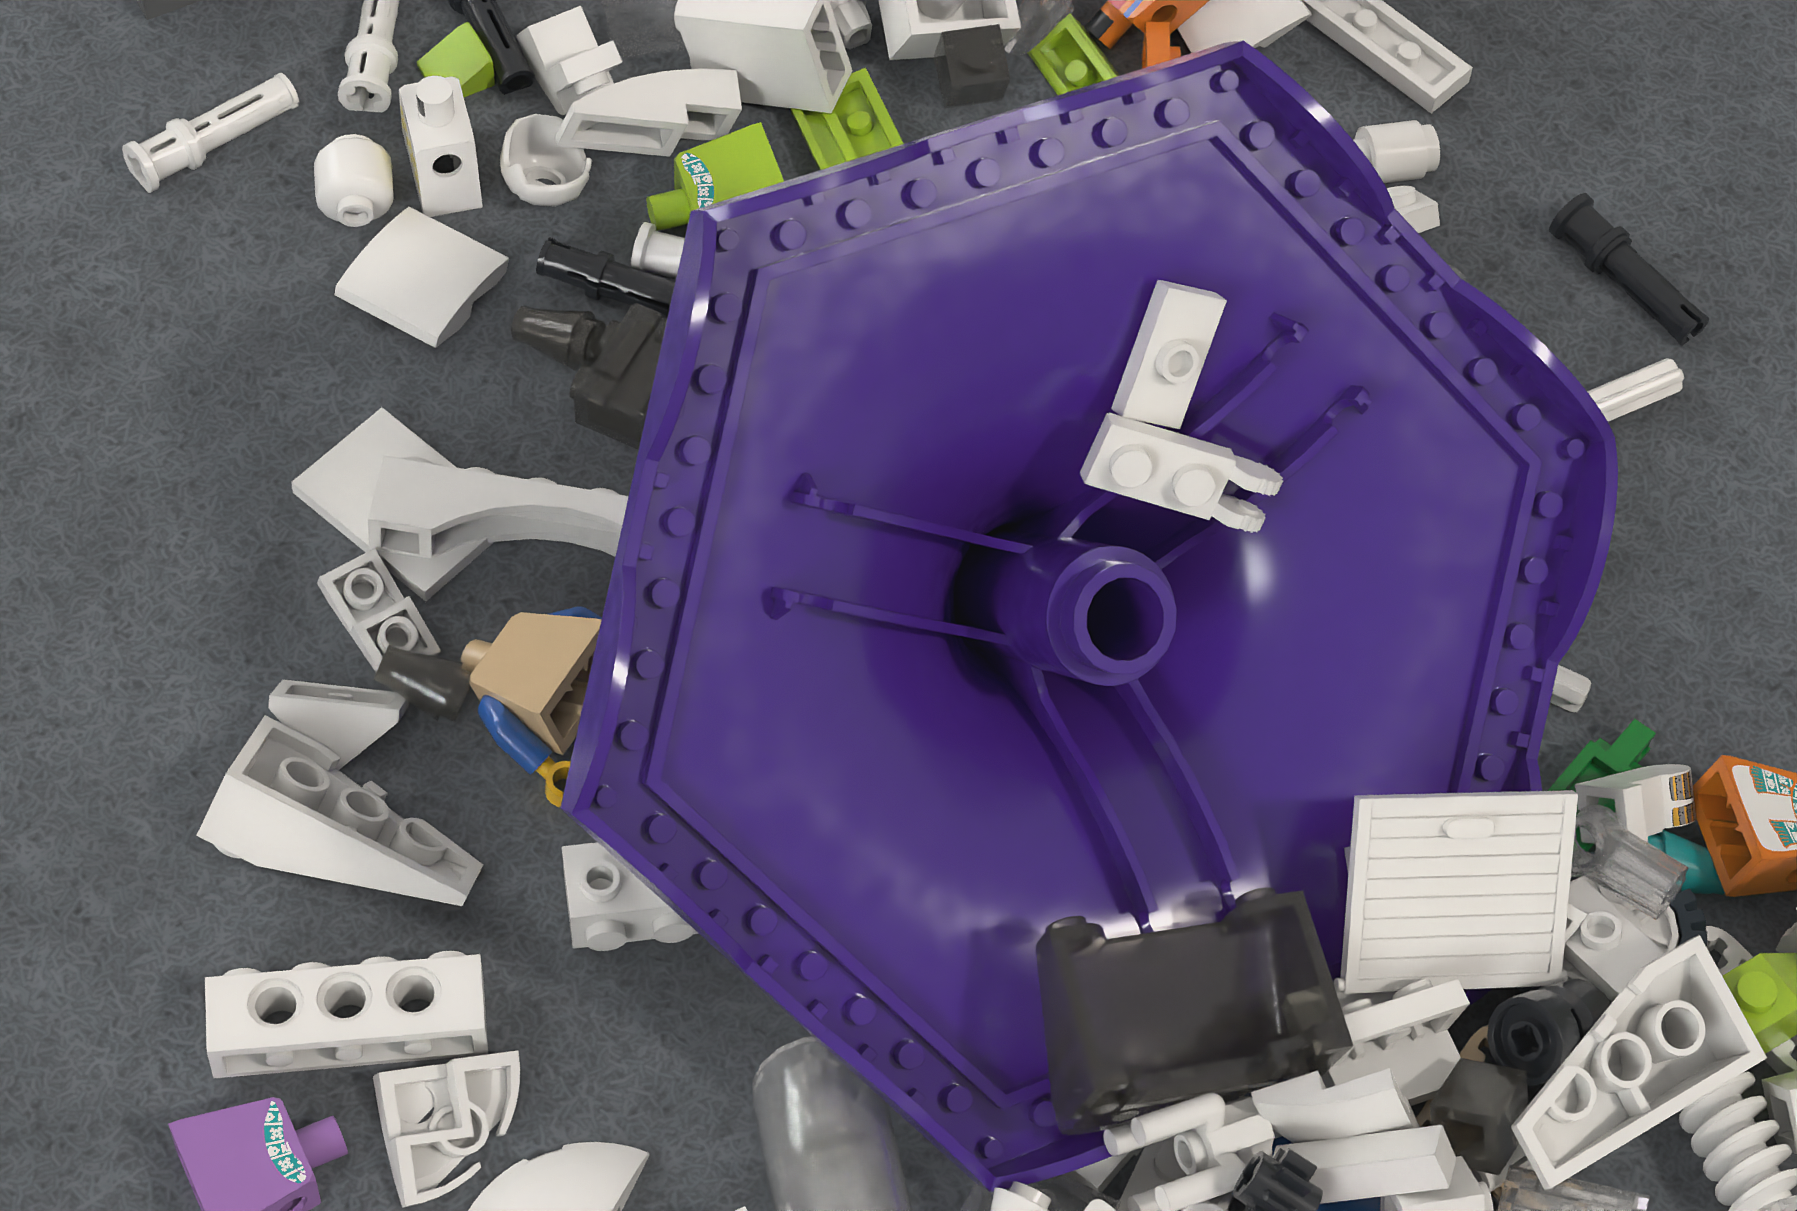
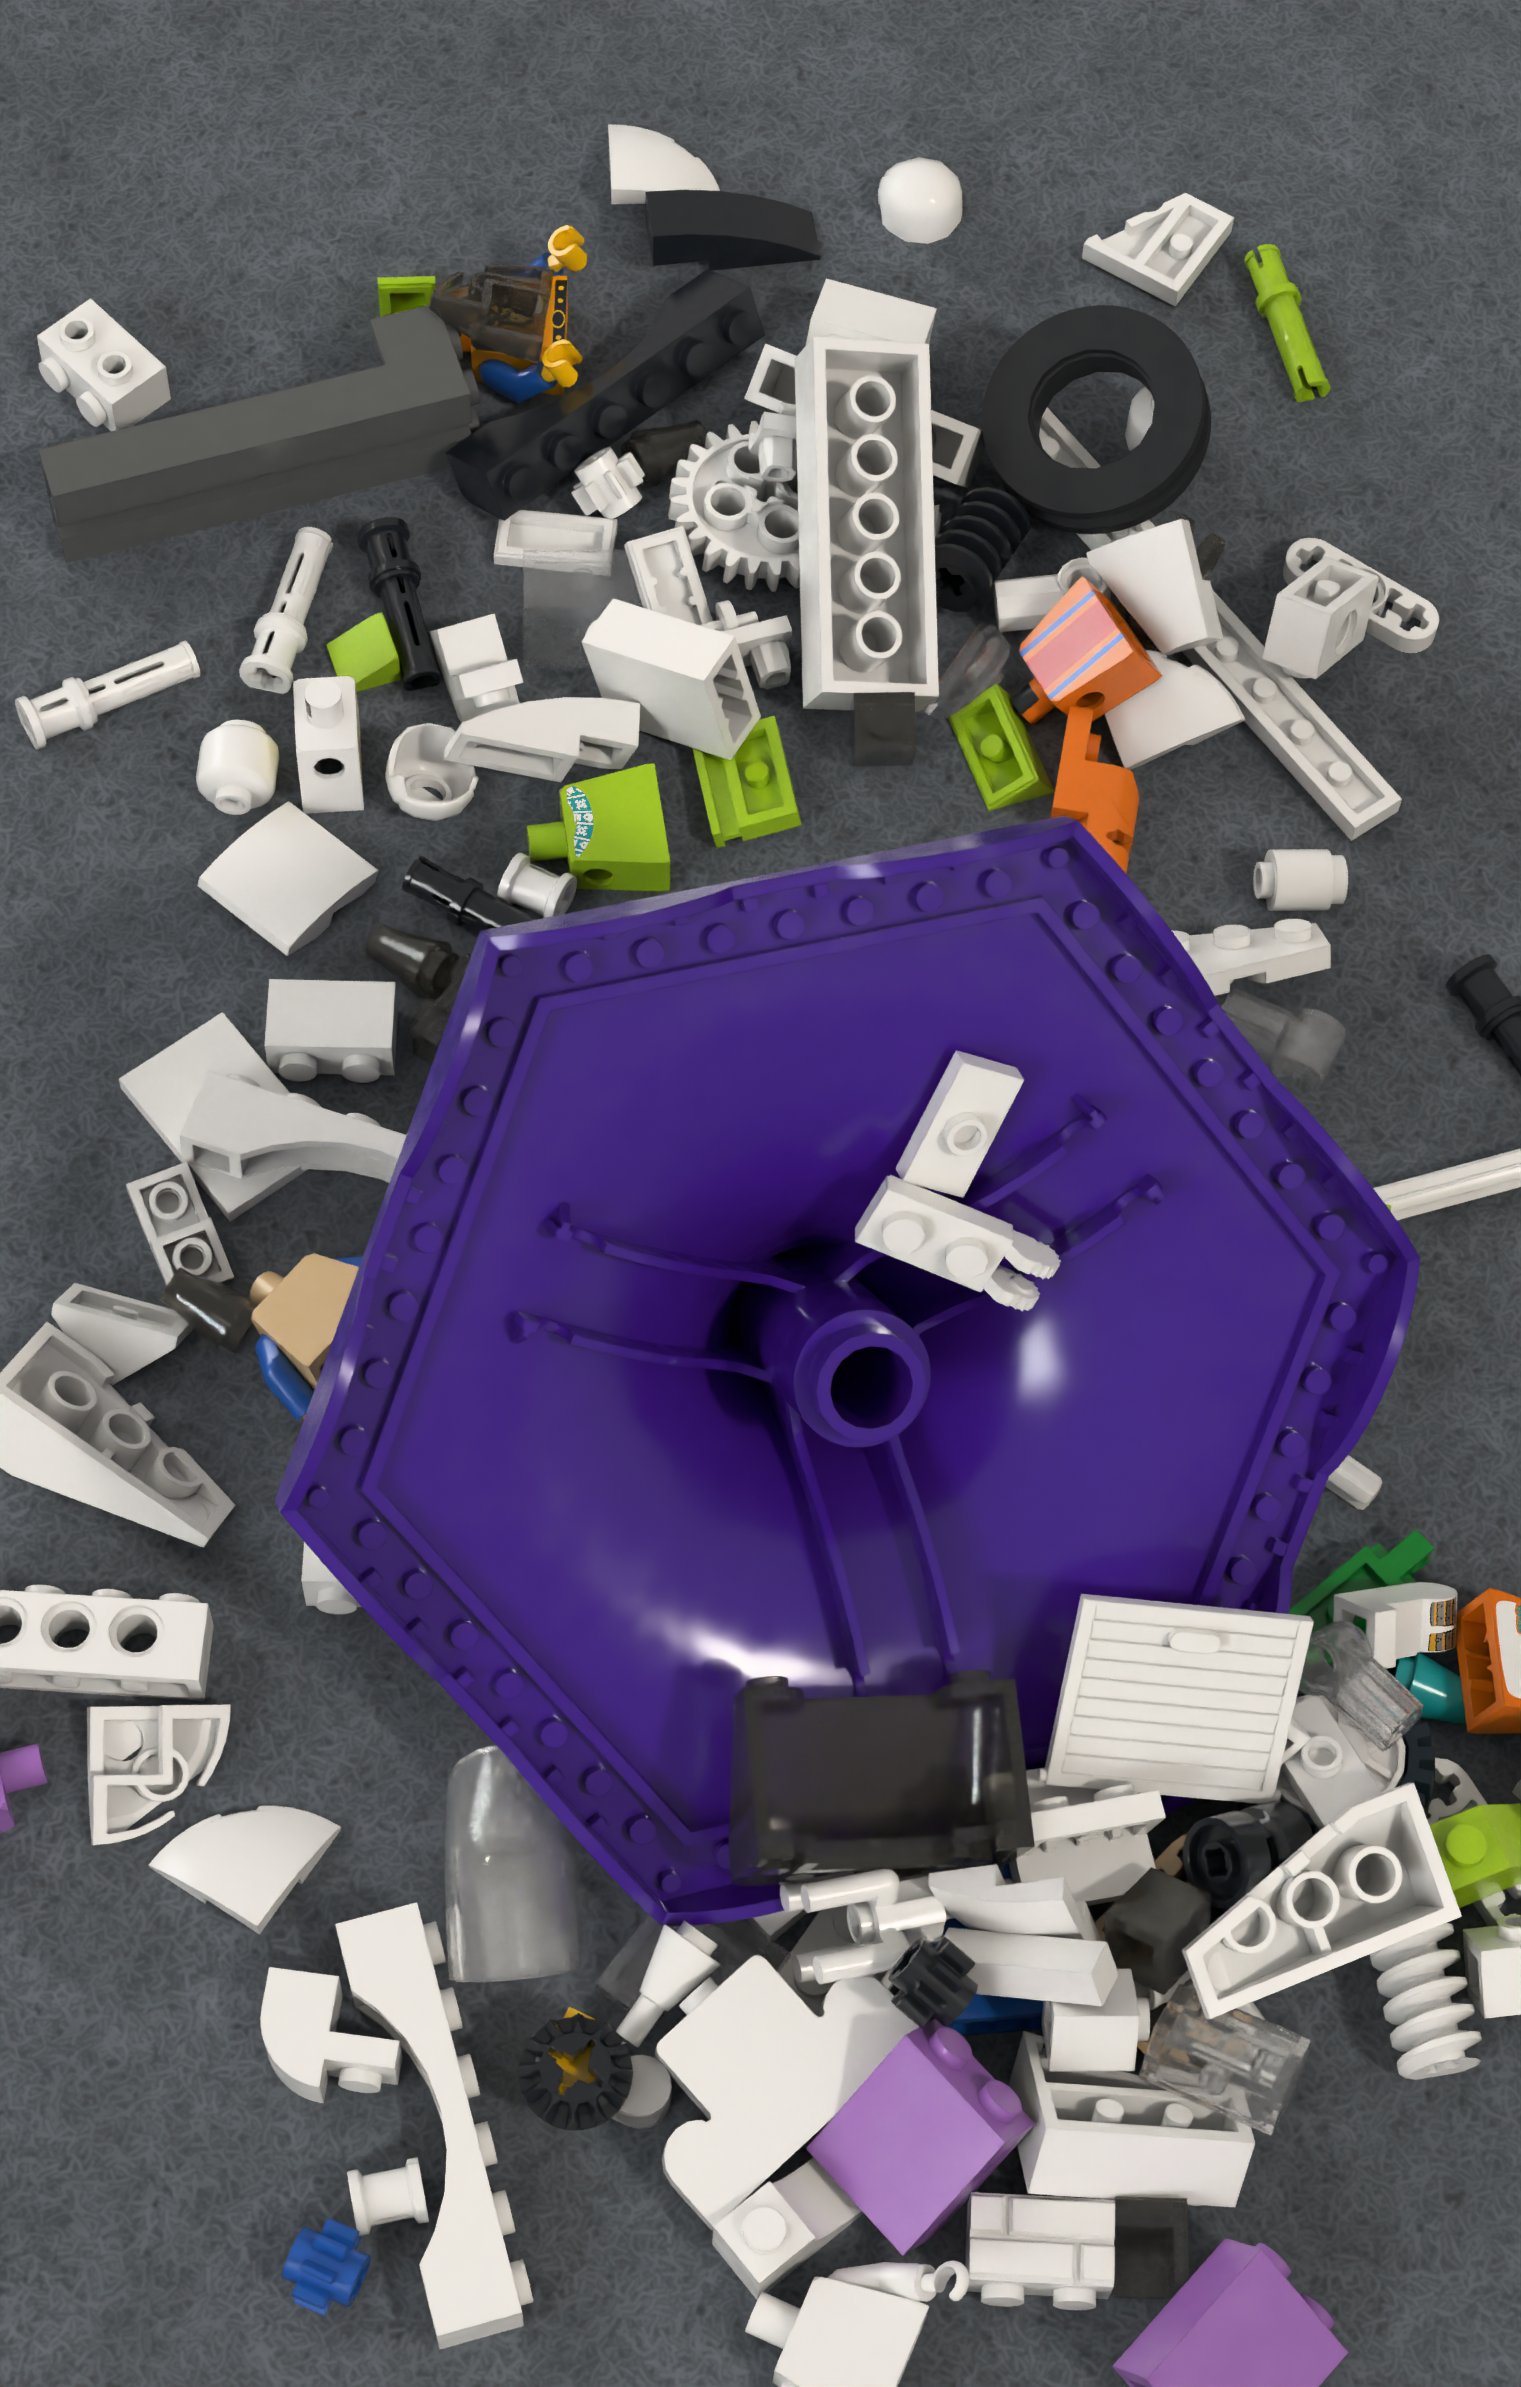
camera: 10 degrees right, 5 degrees up
(494, 406) = (331, 1029): none -> white brick

